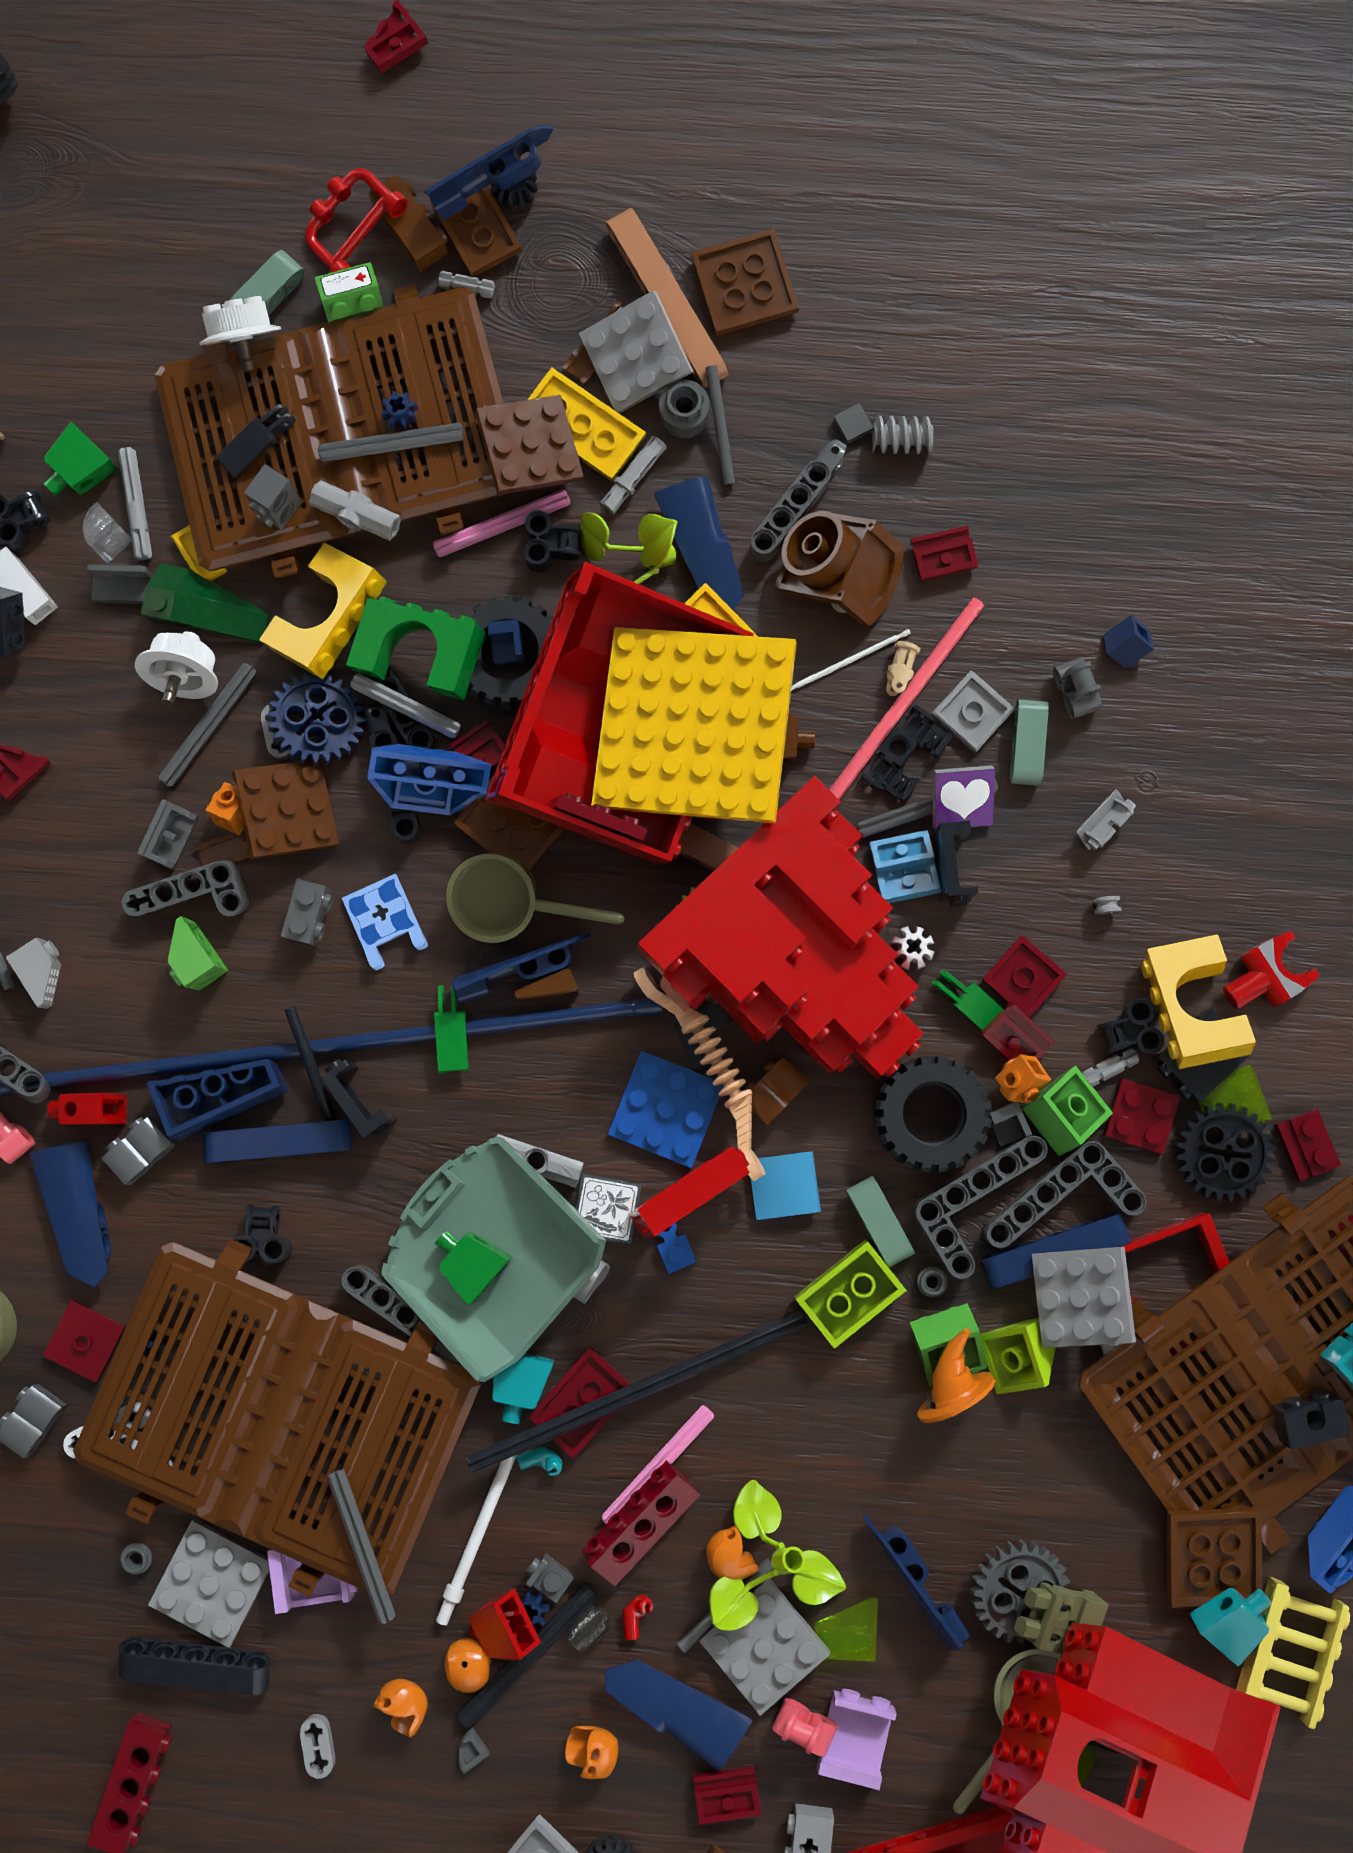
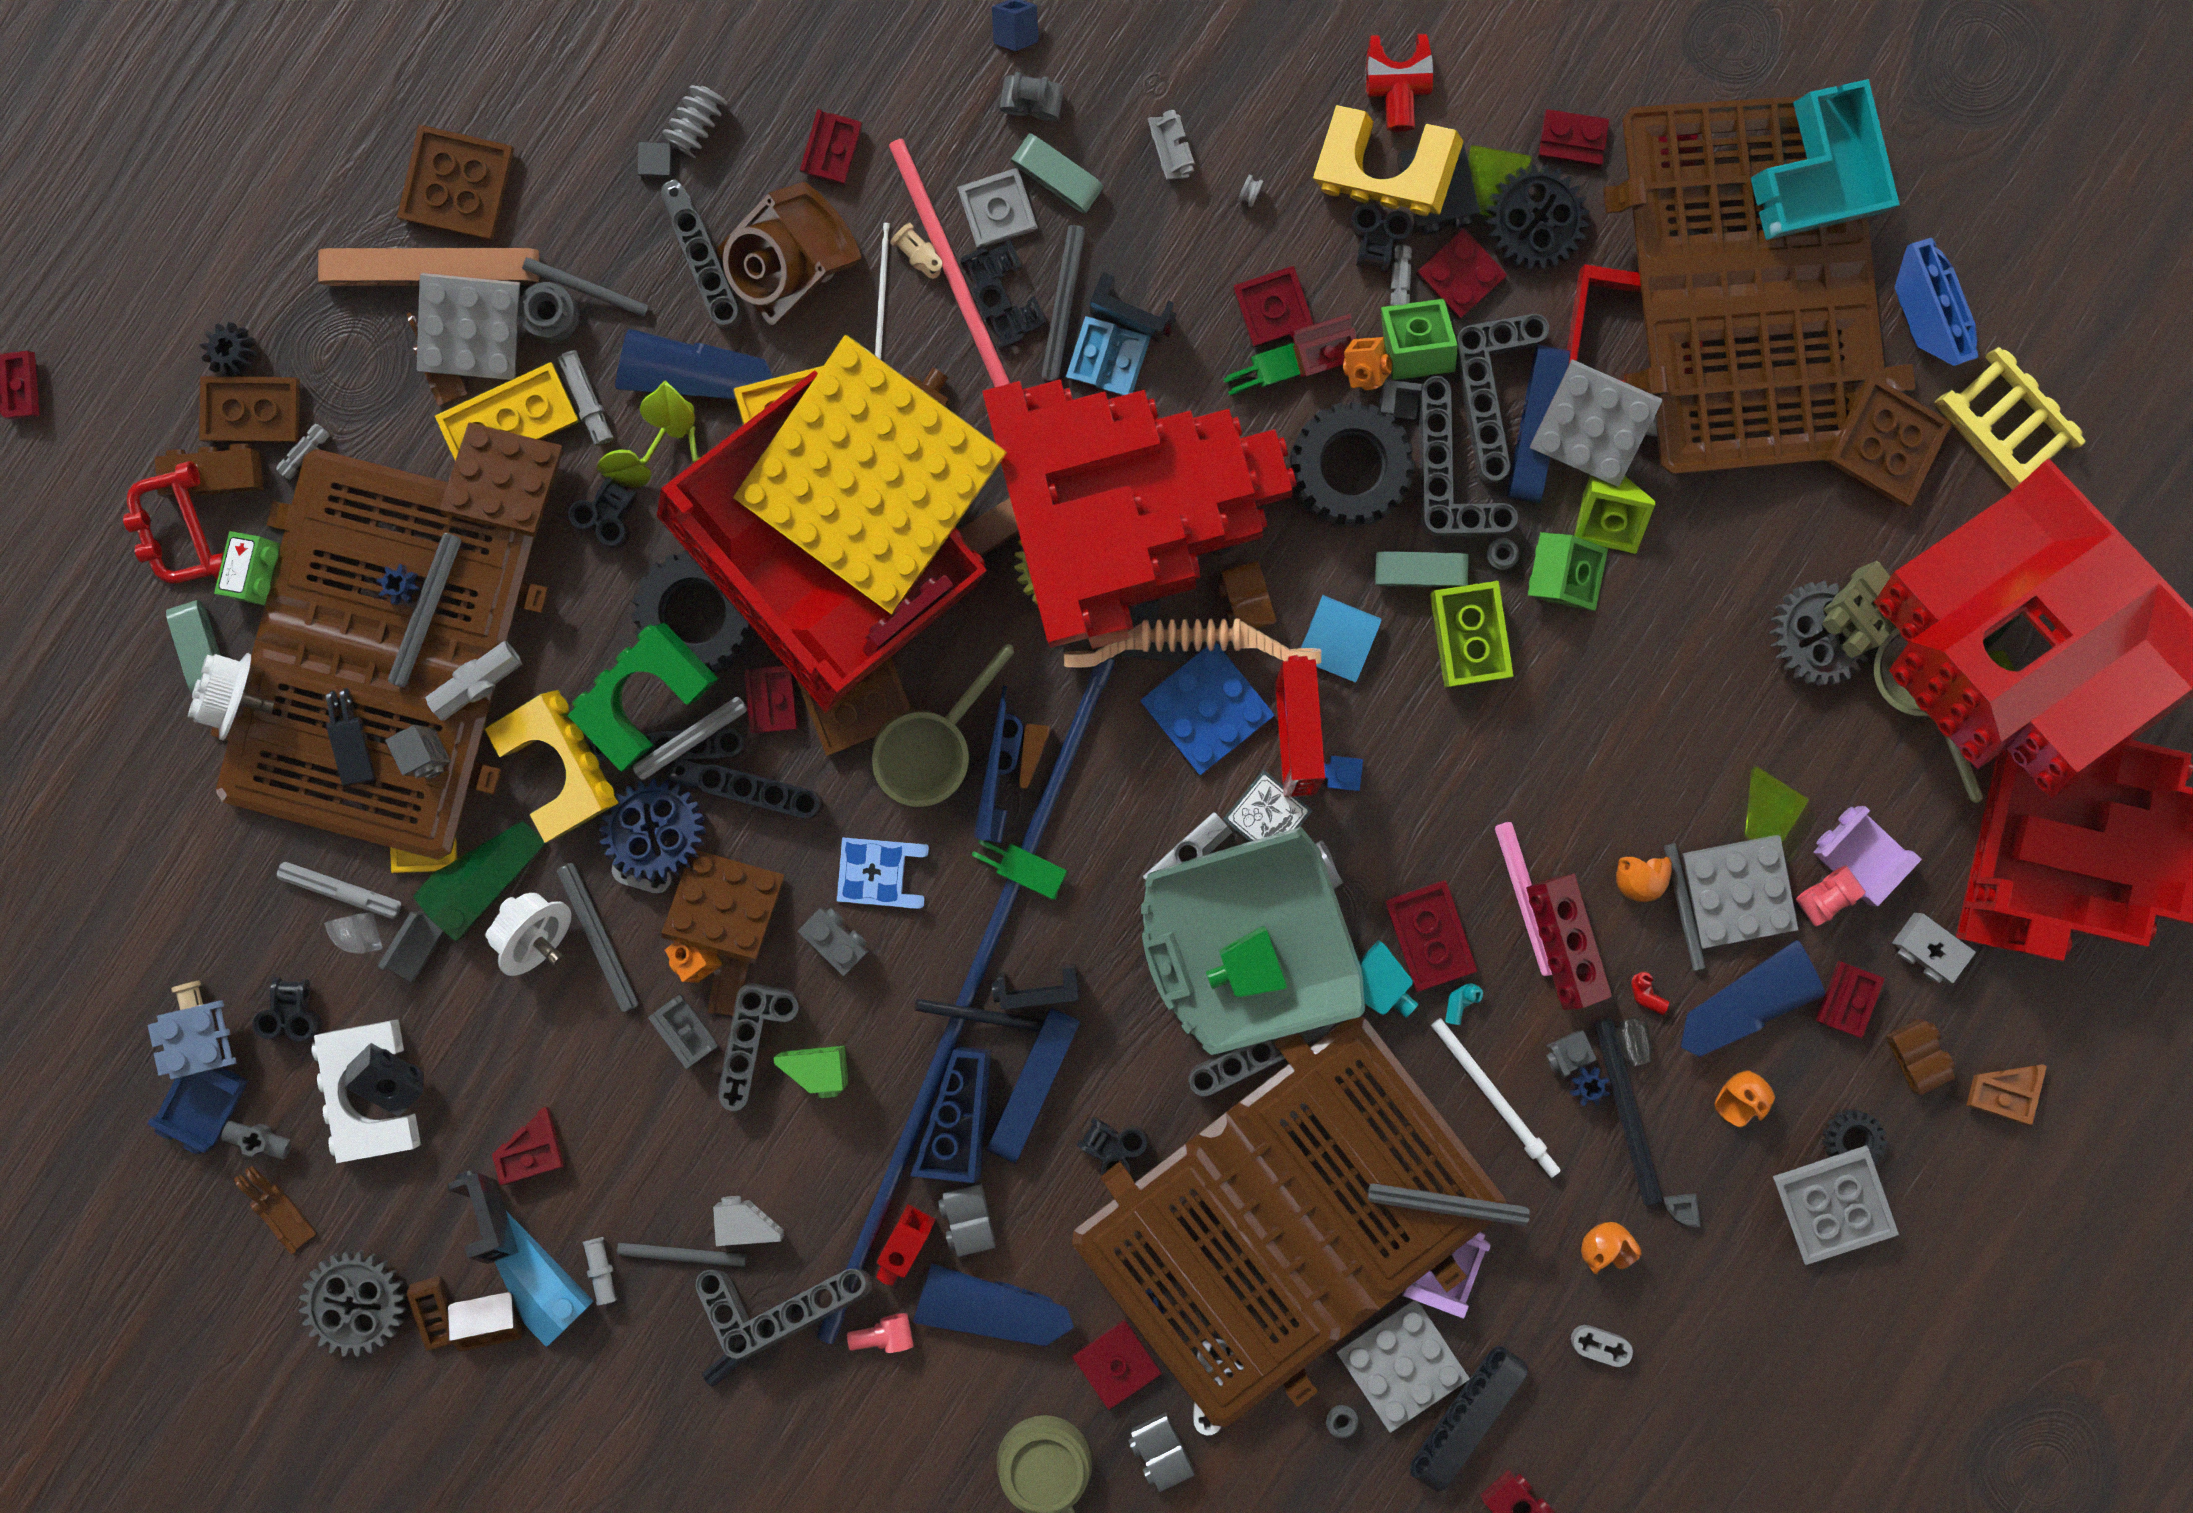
camera: 70 degrees left, 5 degrees up
(76, 462) = (266, 924): green torso -> none
(427, 778) = (772, 754): blue wedge -> none
(451, 193) = (209, 417): dark blue panel -> none
(478, 1668) = (1619, 1167): orange helmet -> none
(499, 523) = (560, 550): bright pink axle -> none
(504, 1628) = (1592, 1117): red torso -> none
(506, 641) = (686, 608): dark blue panel -> none
(636, 1391) = (1450, 878): black axle -> none
(814, 1580) = (1705, 811): lime plant -> none
(921, 948) = (1193, 386): white piece -> none
(943, 1617) = (1805, 717): dark blue panel -> none
(953, 1384) = (1606, 586): orange piece -> none
(964, 795) = (1074, 264): tile -> none
(1233, 1622) = (1955, 458): teal torso -> none
(1326, 1423) = (1829, 270): black brick -> none

